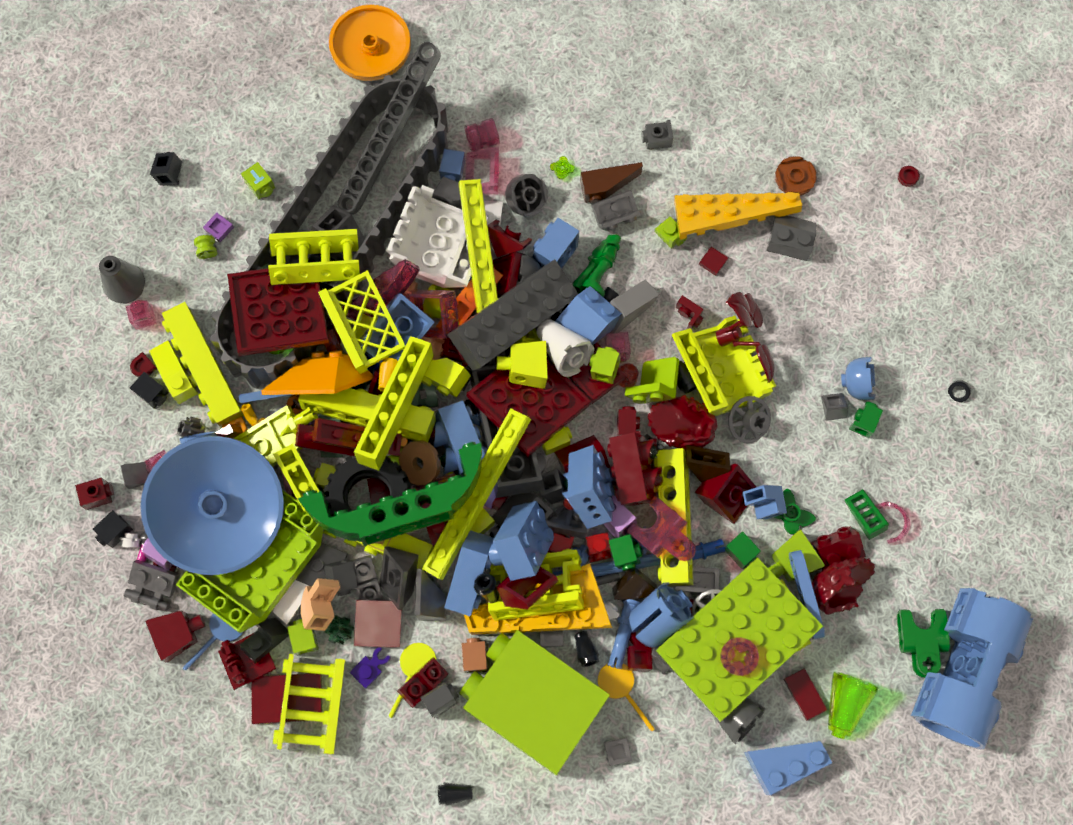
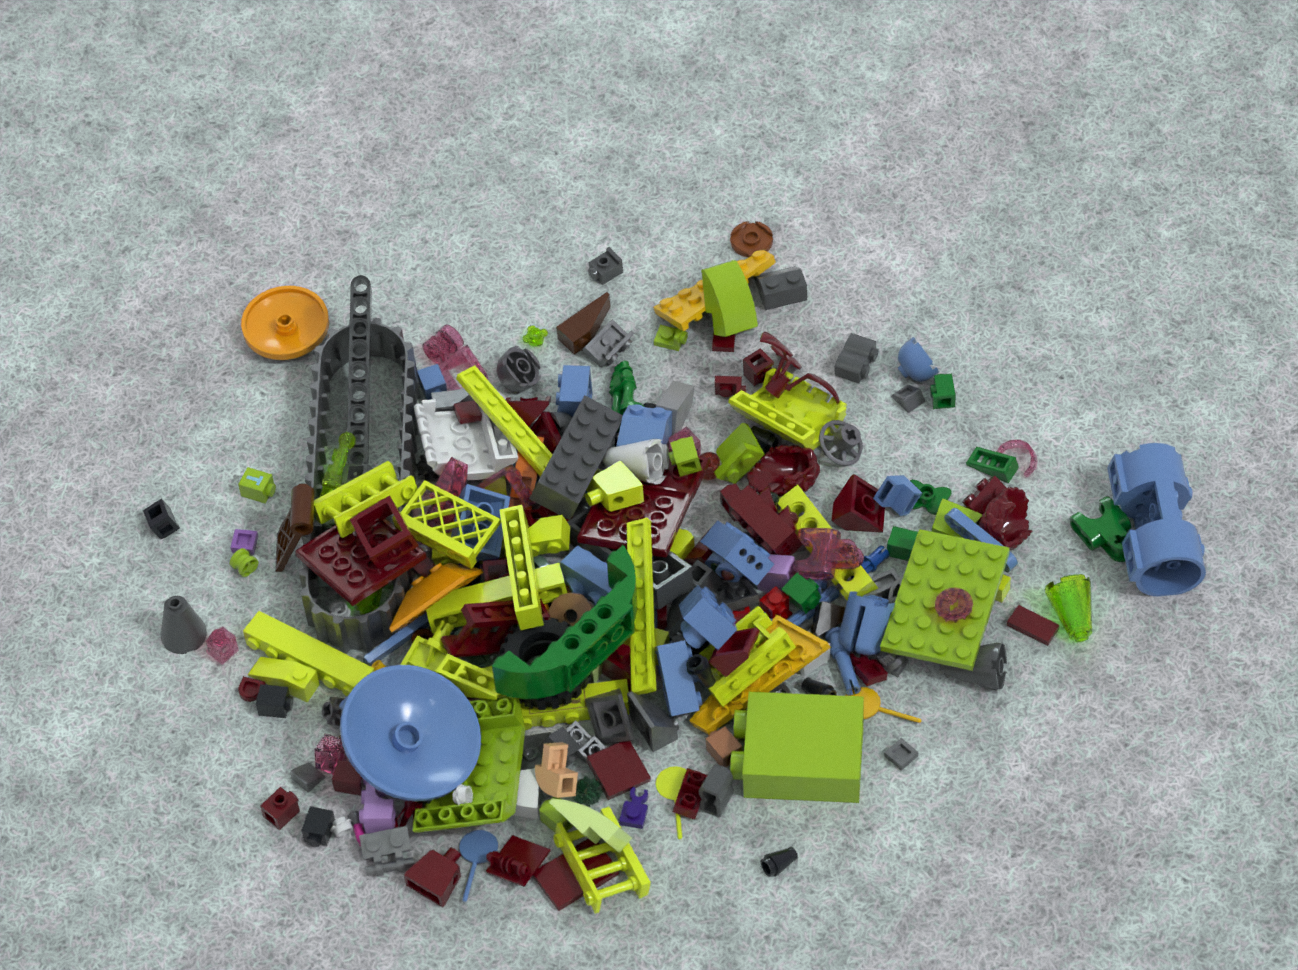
camera: 25 degrees left, 20 degrees down
(228, 582) = (462, 795): none -> white plate
(252, 241) = (296, 524): none -> reddish brown piece
(266, 638) = (523, 835): pearl dark grey slope -> none
(299, 325) = (402, 542): none -> dark red window
(303, 221) = (333, 476): none -> clear neon green plate
(310, 677) = (592, 823): none -> yellowish green slope
(385, 372) = (497, 554): yellow cone -> none
(455, 213) = (467, 412): none -> dark red tile
(707, 462) = (827, 489): dark brown slope -> none
(719, 308) = (757, 372): none -> dark red brick
(735, 230) = (728, 299): none -> lime slope
(785, 765) = (1051, 681): medium blue wedge -> none
(812, 343) = (855, 358): none -> dark grey brick
(908, 176) = (851, 190): dark red tile -> none
(965, 385) = (1008, 323): black piece -> none

